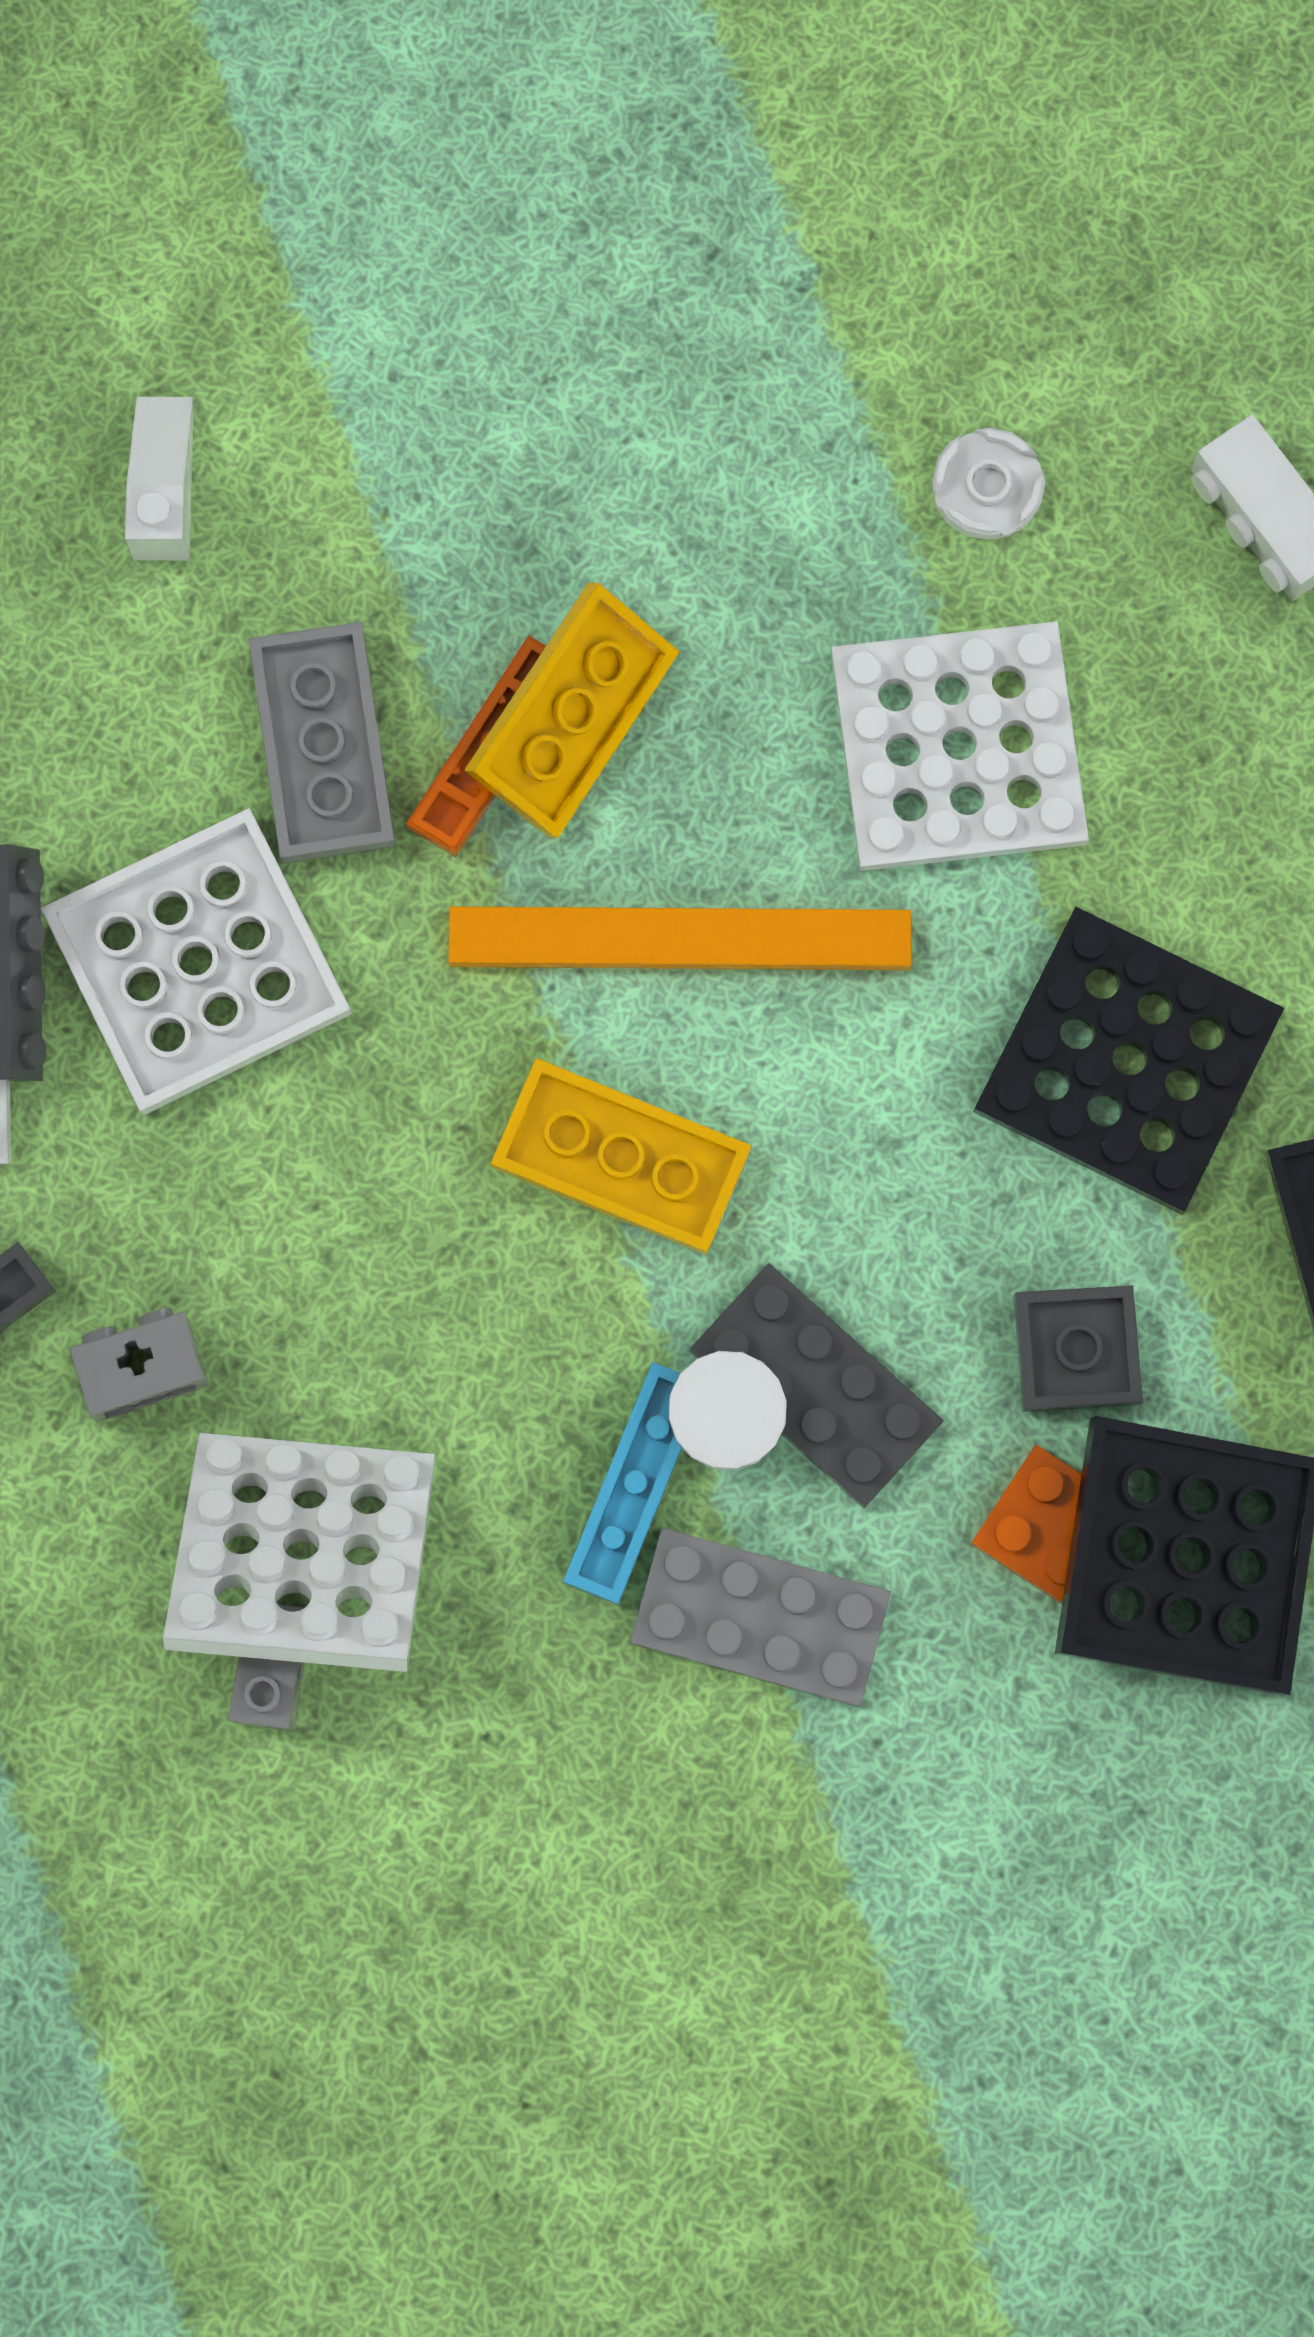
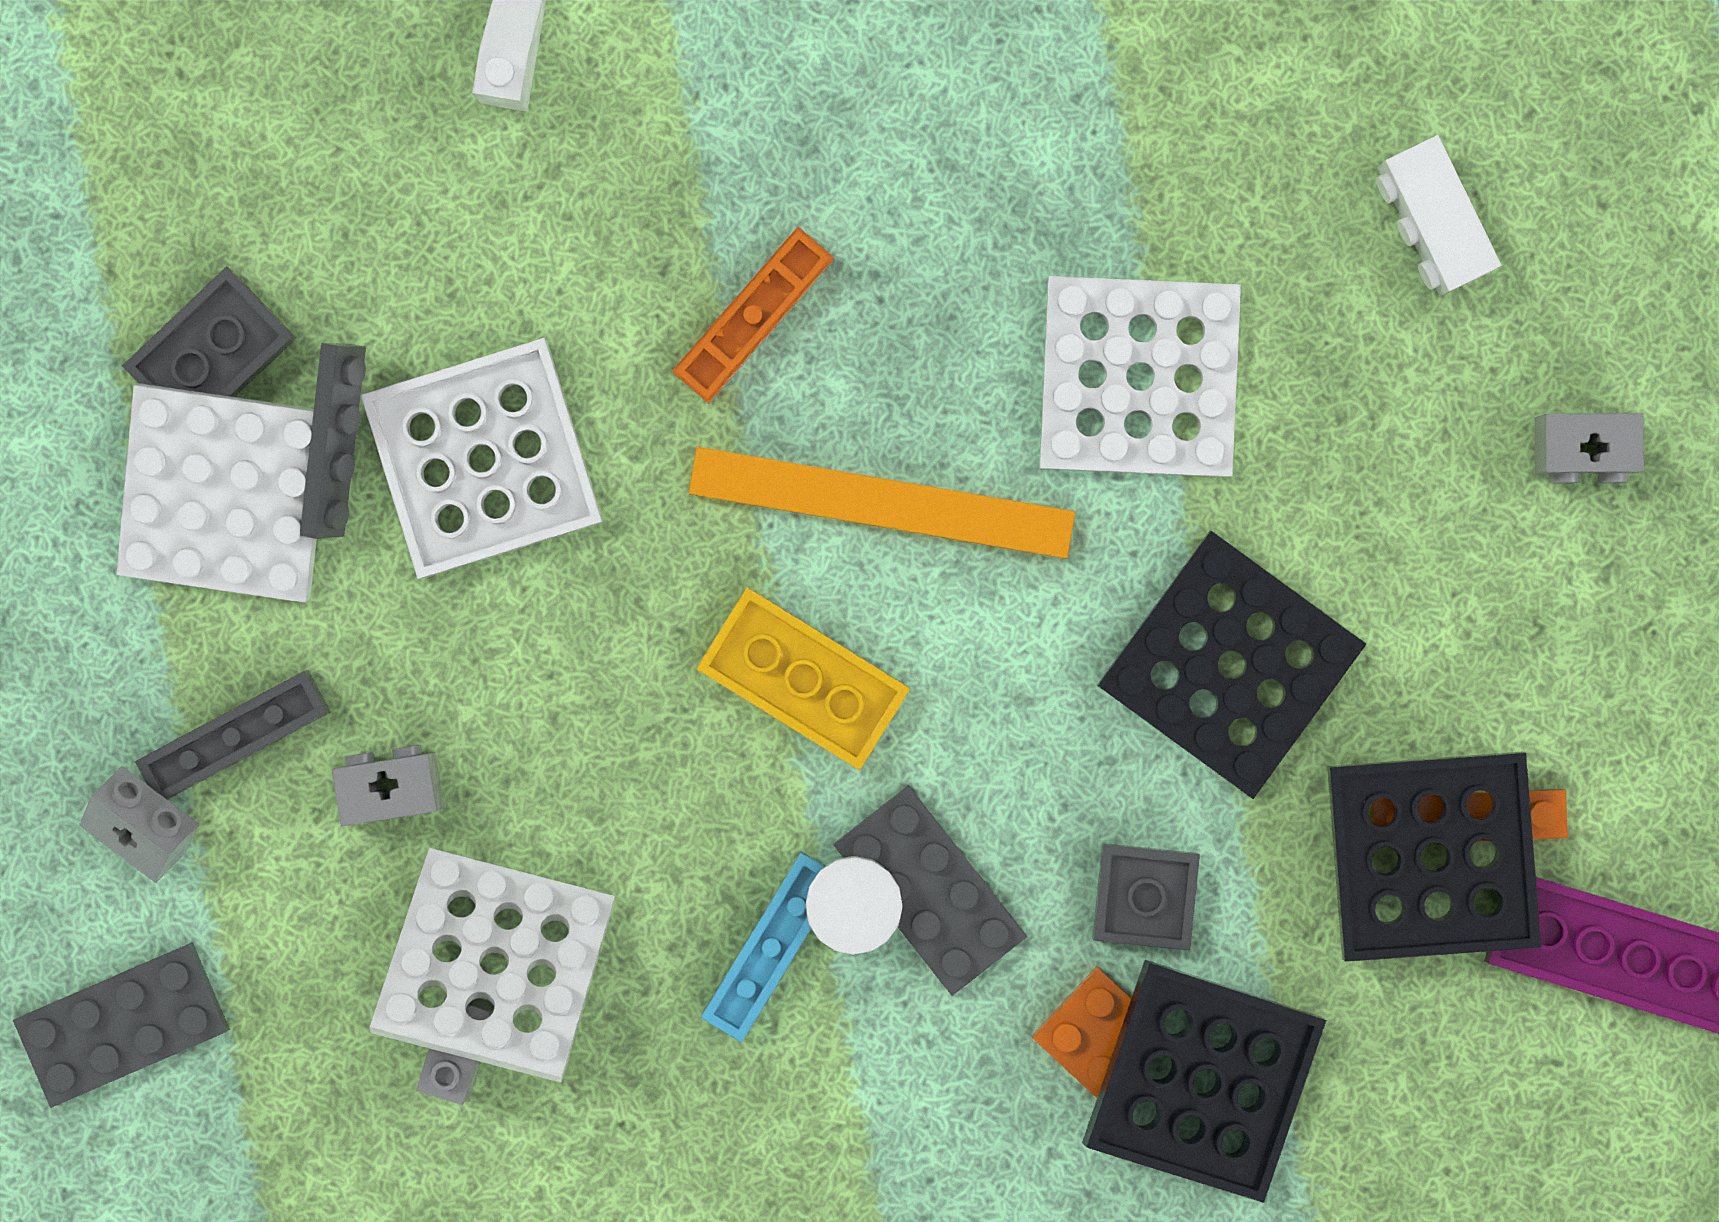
camera: 10 degrees right, 10 degrees up
(321, 742) = (612, 289): light grey plate -> none
(572, 710) = (823, 298): yellow plate -> none
(760, 1617) = (854, 1068): light grey plate -> none
(983, 502) = (1192, 162): white tile -> none

